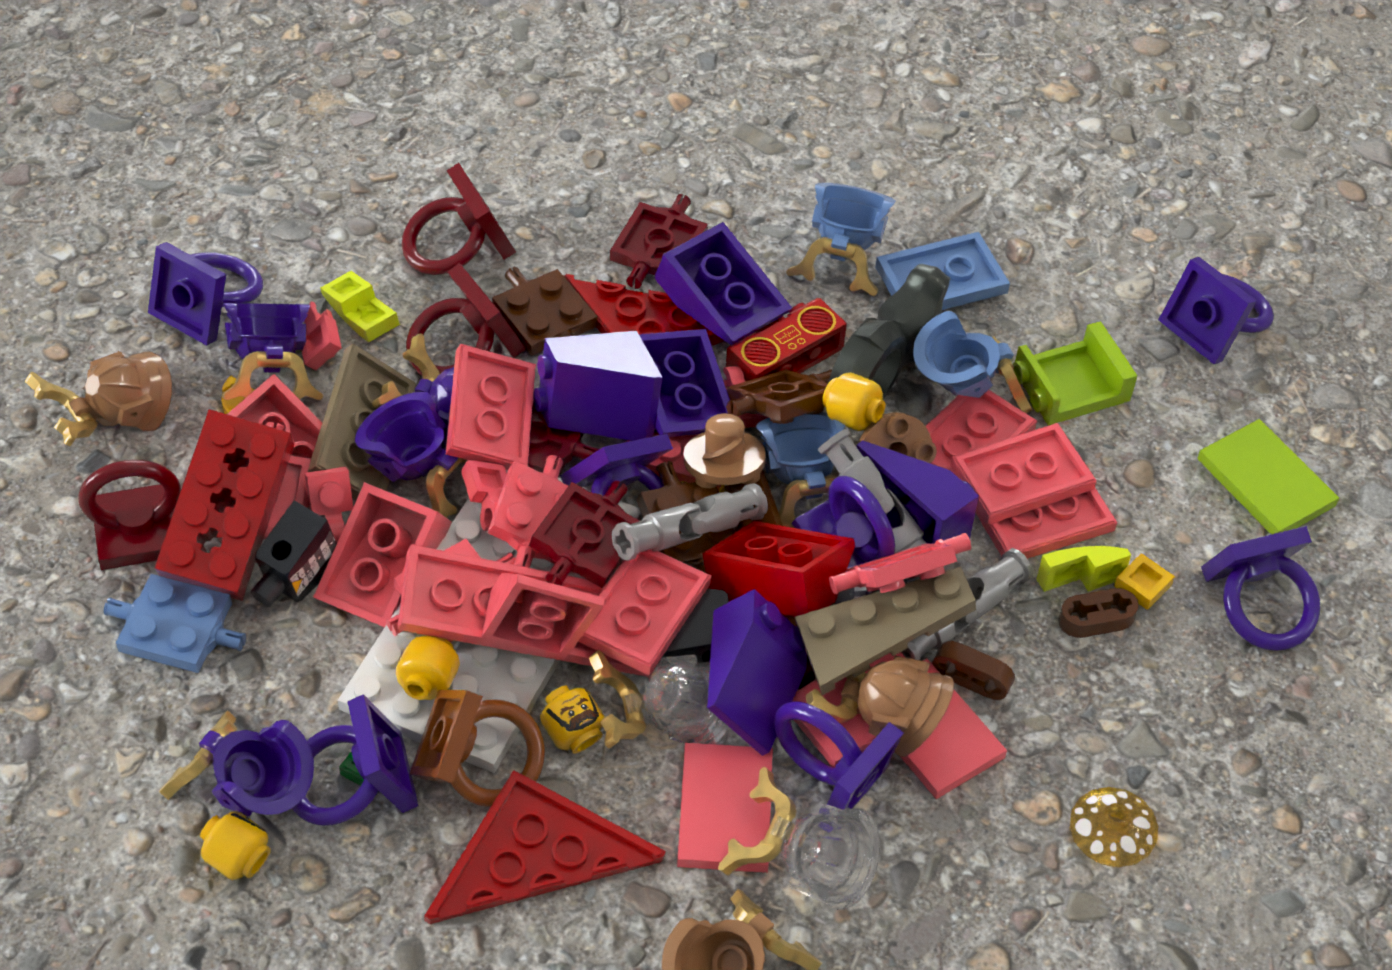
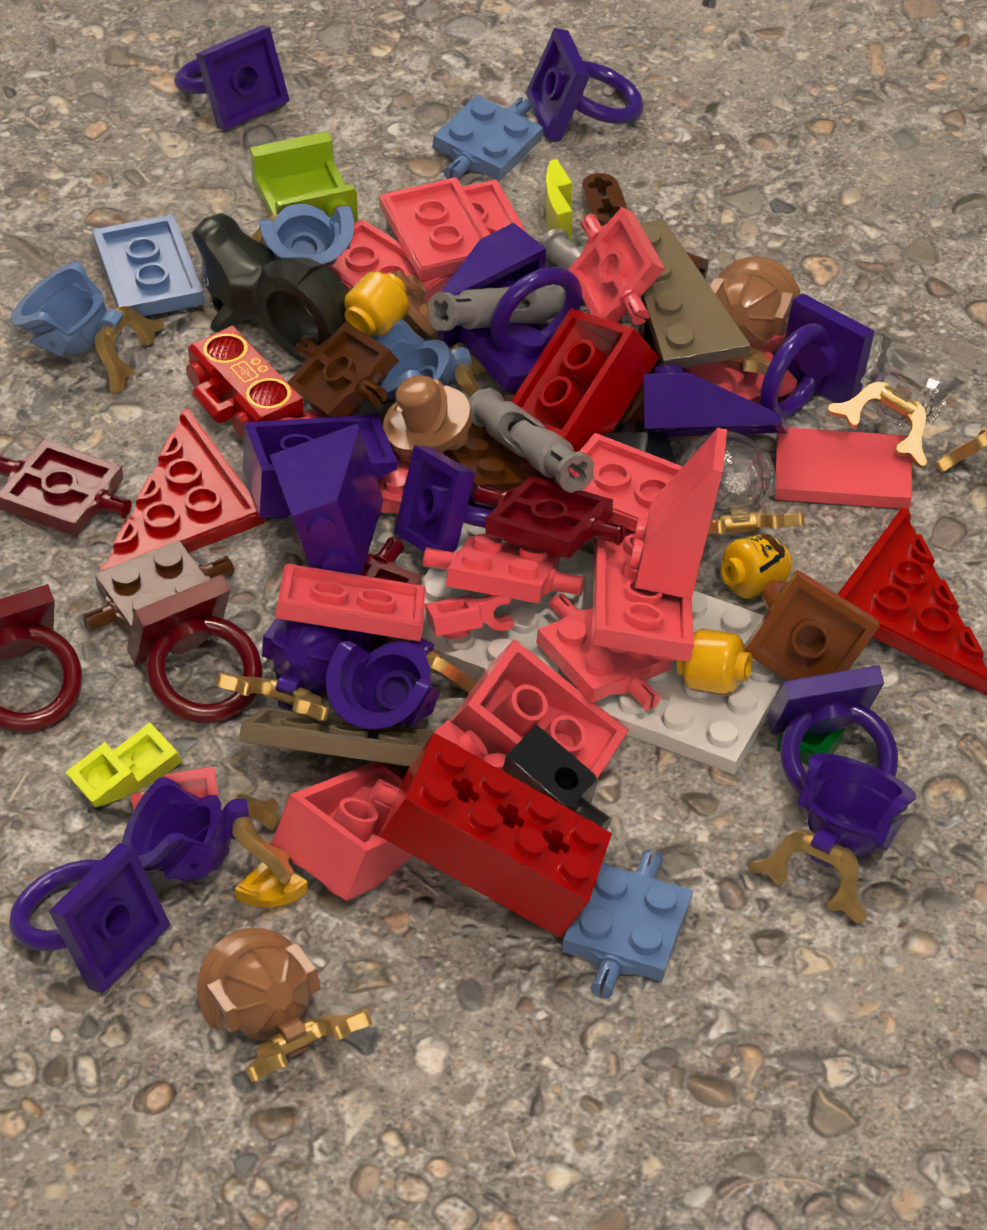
camera: 85 degrees left, 5 degrees down
(130, 521) = (475, 967): dark red tile -> none
(234, 845) = (937, 836): yellow head -> none
(720, 285) = (165, 418): dark purple slope -> none
(1111, 841) = (838, 225): clear yellow dish -> none
(1145, 580) = (576, 165): yellow plate -> none
(1184, 515) = (487, 138): none -> medium blue plate
(1267, 478) = (440, 84): lime tile -> none

